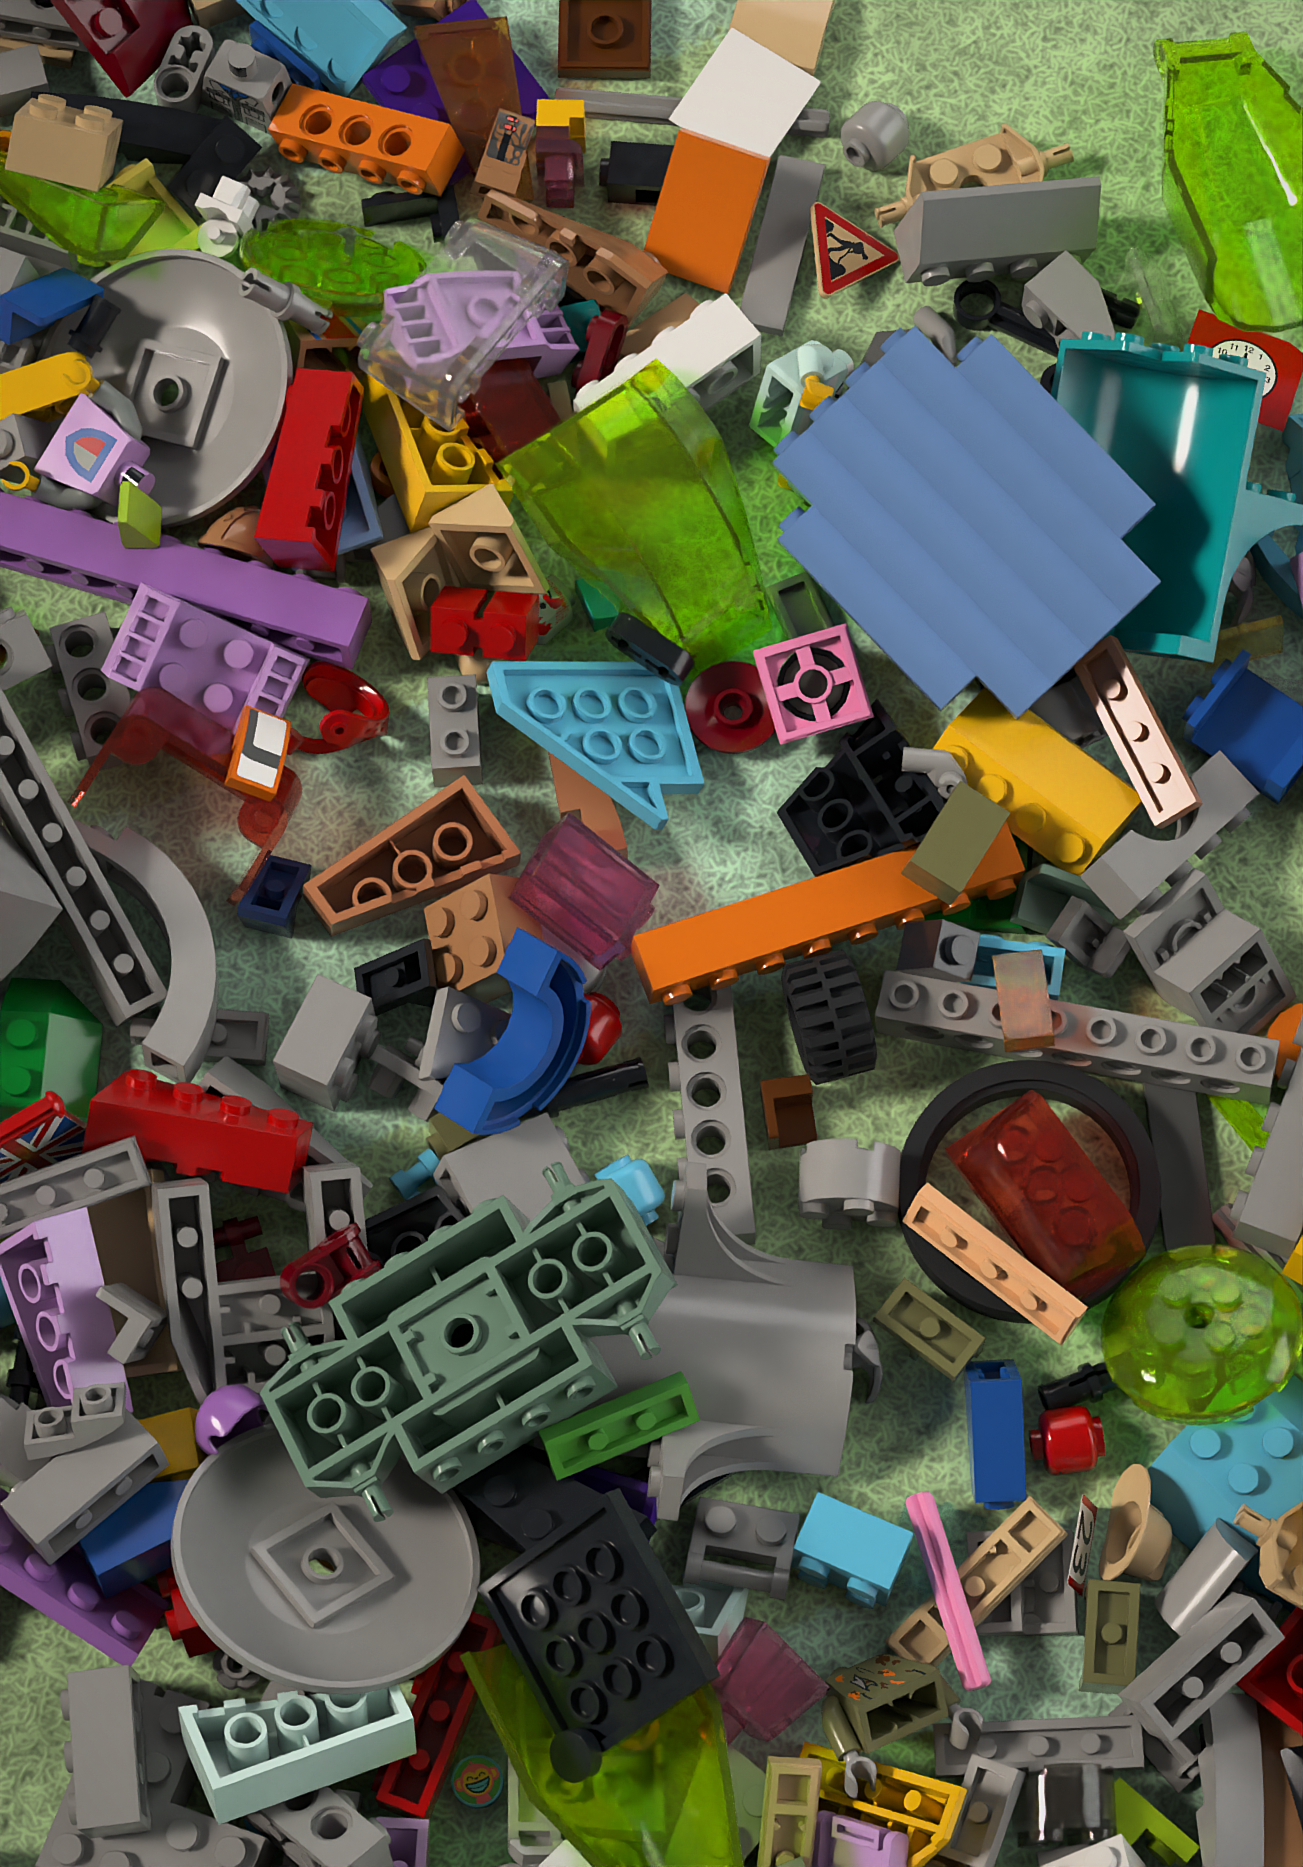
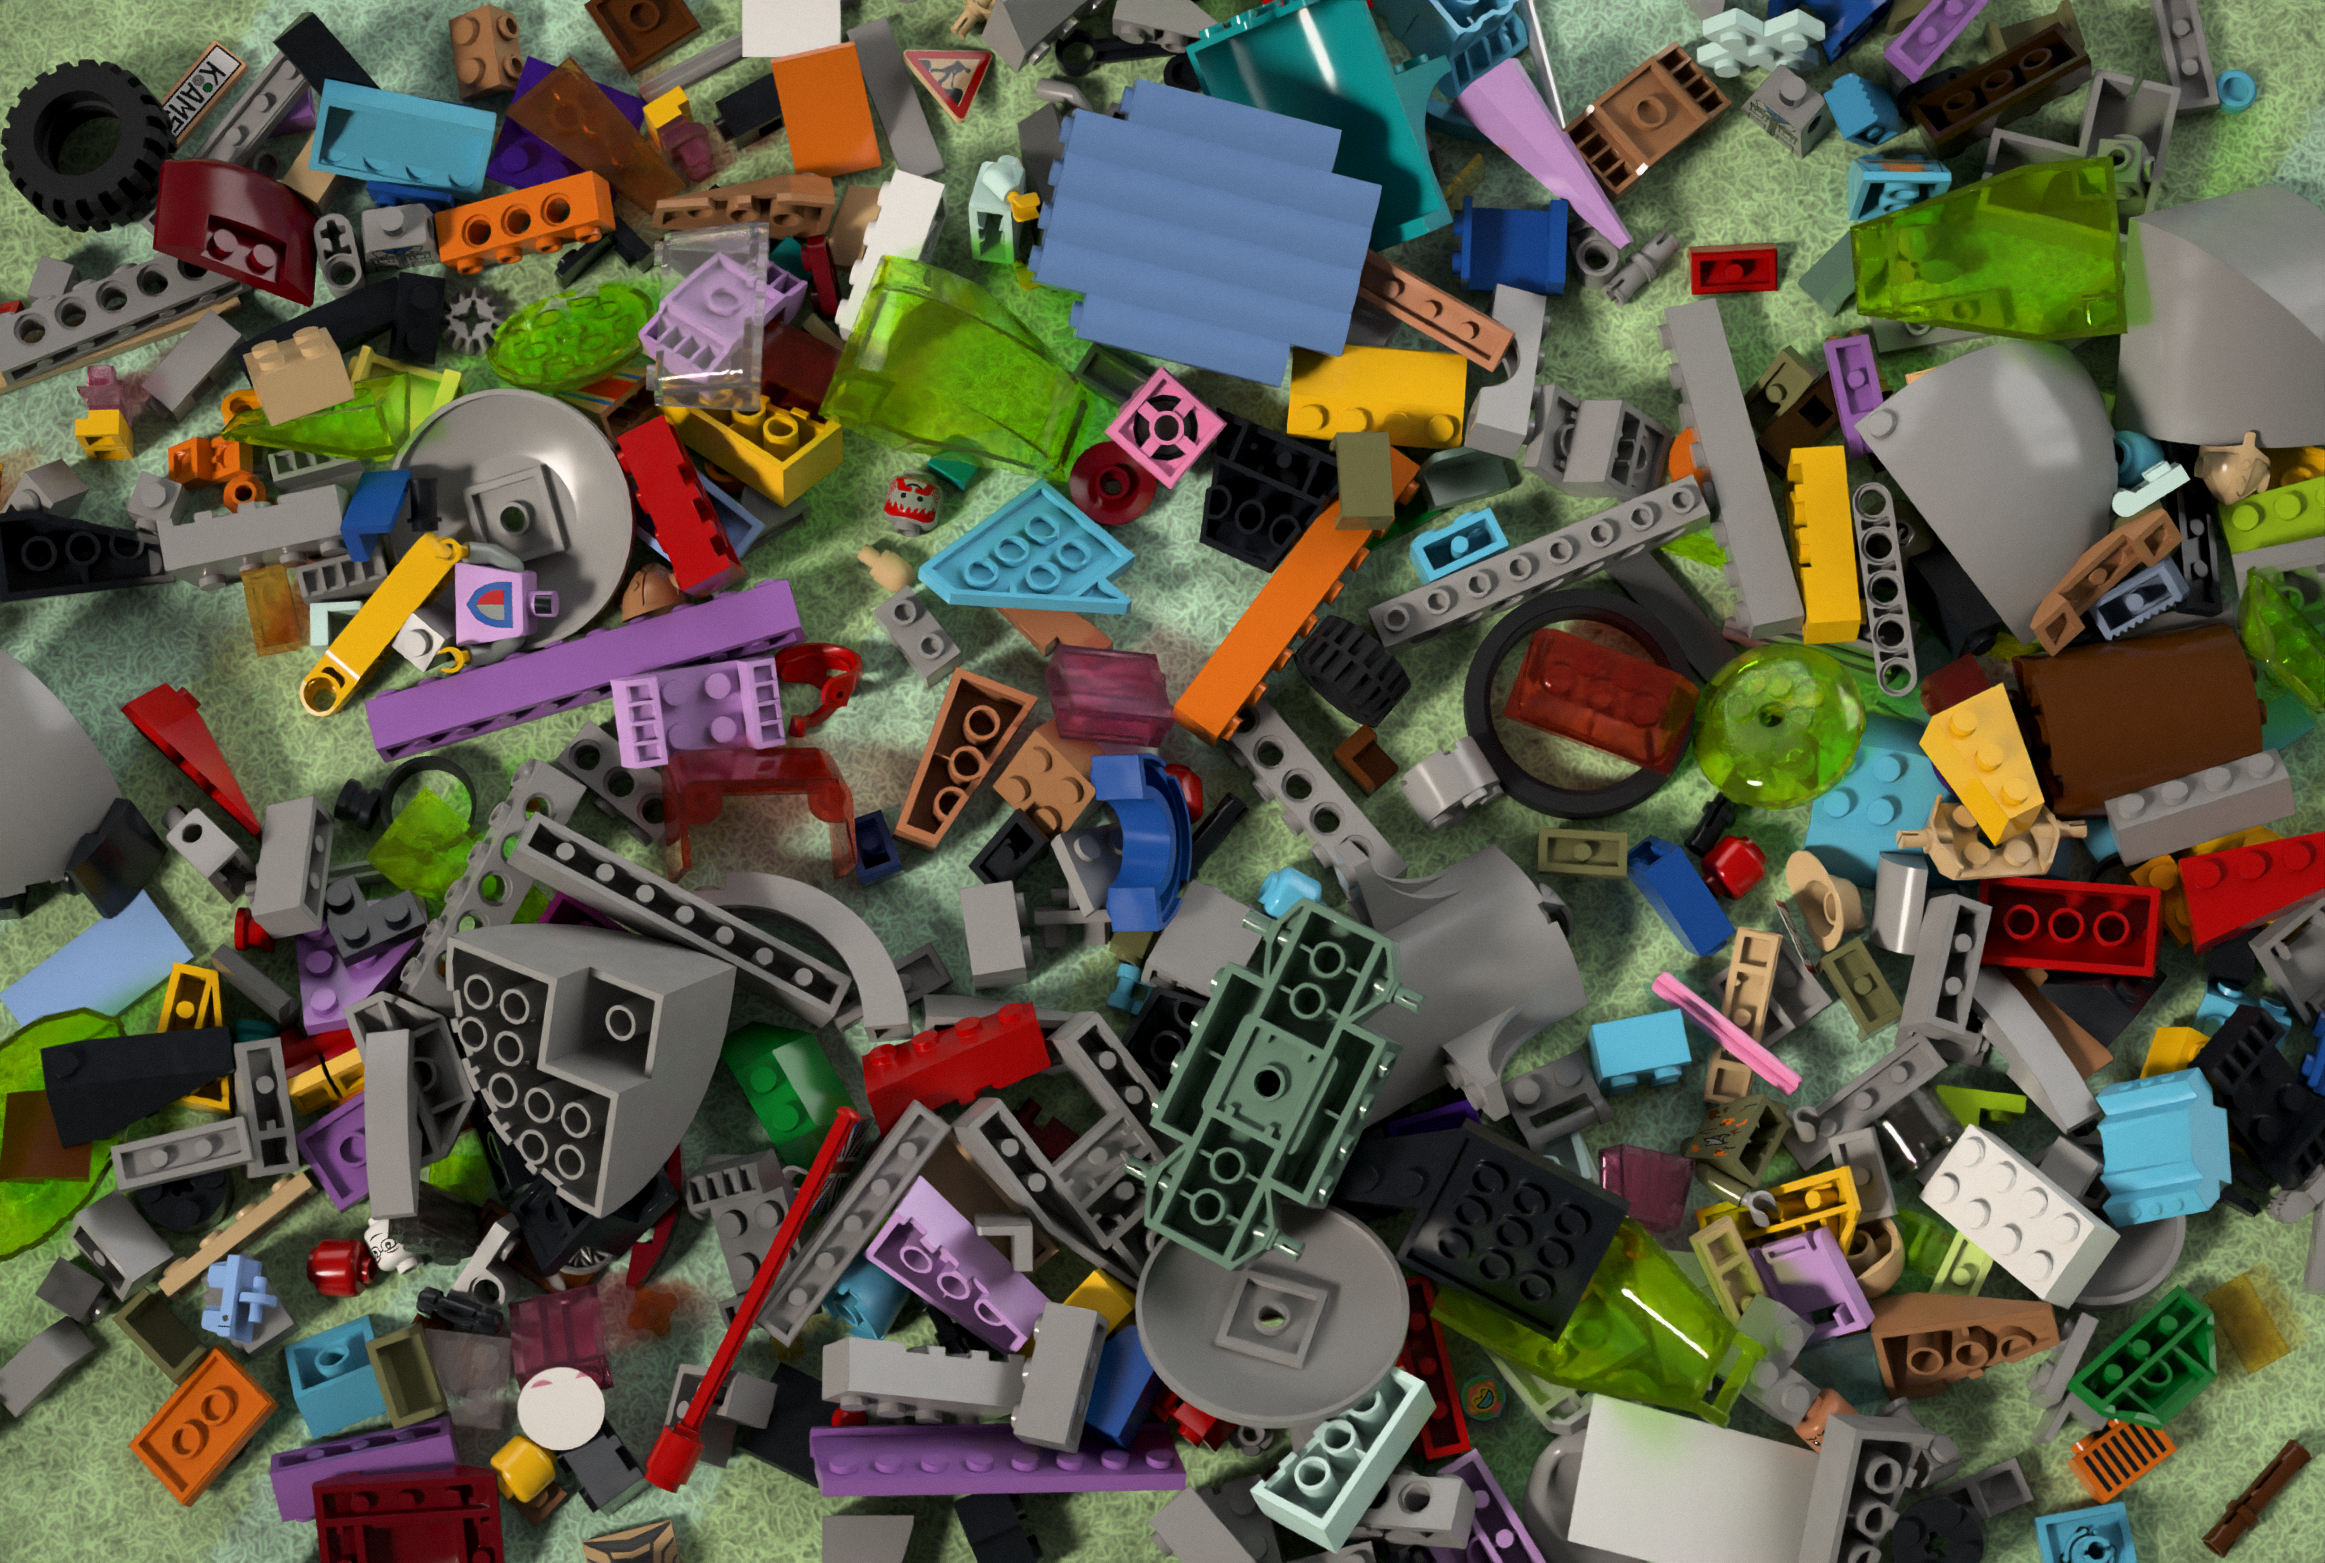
camera: 35 degrees left, 5 degrees up
(92, 1415) = (1021, 1346): light grey slope -> none
(138, 518) = (569, 631): lime slope -> none
(226, 217) = (464, 356): white hips -> none
(226, 1415) = (1126, 1258): medium lavender hair -> none
(258, 753) = (793, 751): slope -> none
(284, 301) = (569, 392): light grey pin -> none
(332, 1267) = (1131, 1093): dark red piece -> none
(412, 576) = (815, 546): tan slope -> none
(487, 545) = (850, 479): tan slope -> none
(503, 154) = (644, 168): medium nougat leg -> none
(504, 632) = (909, 541): red piece -> none
(575, 1754) = (1552, 1329): black tile -> none
(619, 1425) = (1420, 1073): bright green plate -> none
(650, 649) = (1024, 480): black beam -> none
(938, 765) = (1303, 430): light grey arm -> none
(938, 950) = (1400, 569): black brick -> none
(994, 1264) = (1599, 774): light nougat tile -> none
(1023, 1000) = (1489, 566): clear orange slope -> none
(1089, 938) = (1500, 487): flat silver bracket -> none

